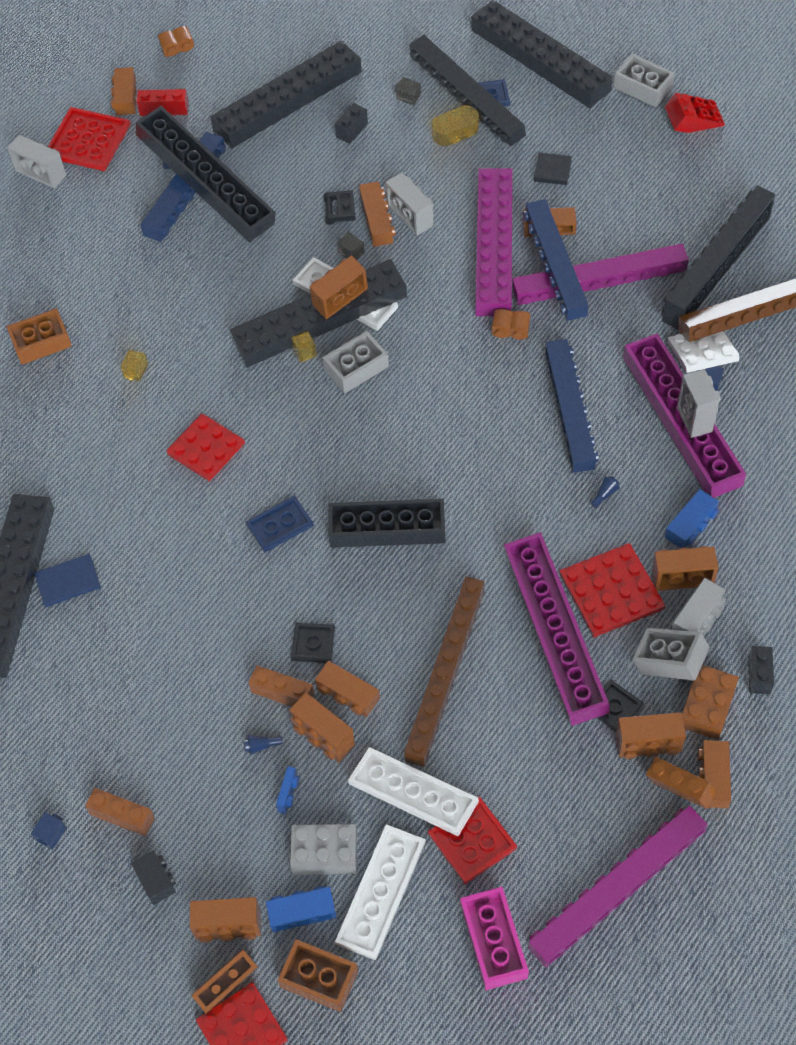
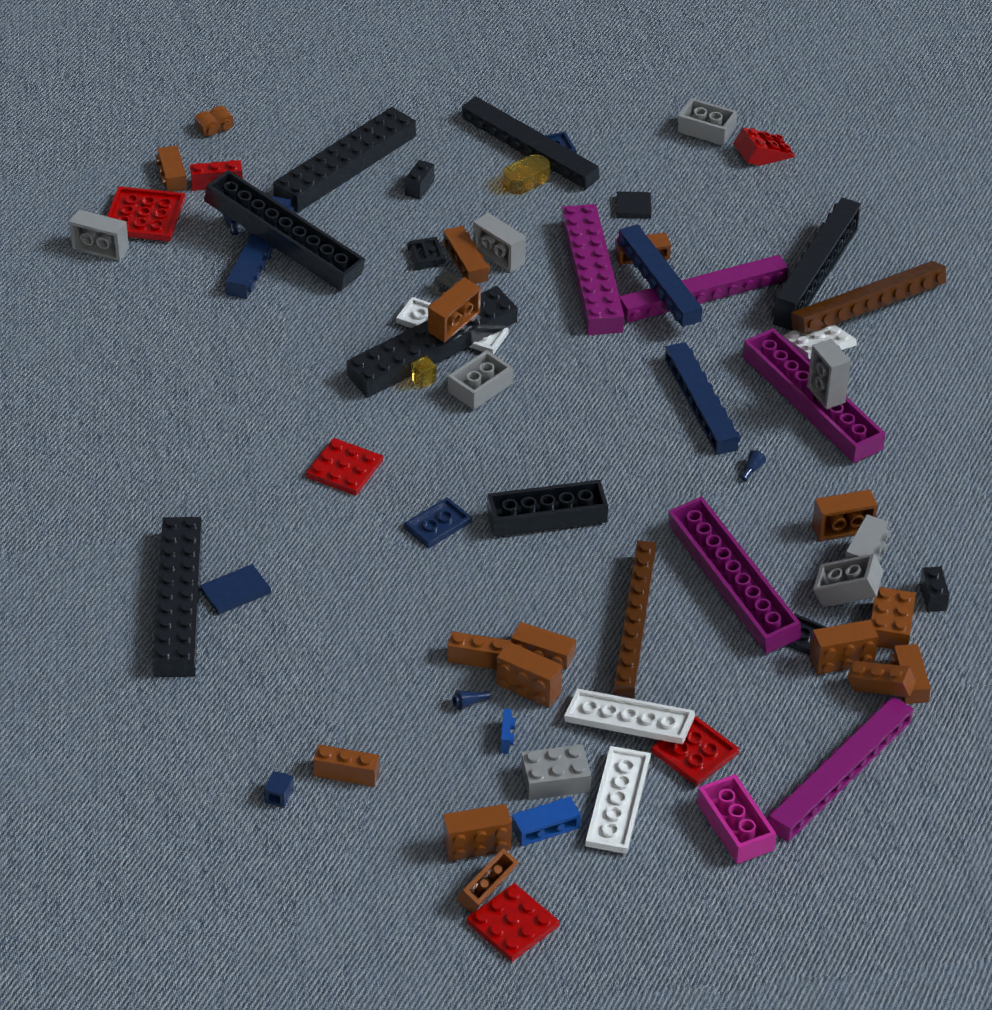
camera: 15 degrees left, 15 degrees down
(39, 336) = (146, 386): dark orange brick -> none
(134, 365) = (252, 403): clear yellow brick -> none
(153, 877) = (394, 813): black brick -> none
(313, 642) = (498, 614): black tile -> none
(318, 975) = (577, 866): dark orange brick -> none
(408, 91) = (470, 148): clear smoke brick -> none
(511, 324) = (626, 336): dark orange brick -> none
(541, 53) = (598, 106): black brick -> none
(611, 590) = (780, 543): red plate -> none
(692, 519) = (842, 476): blue brick -> none

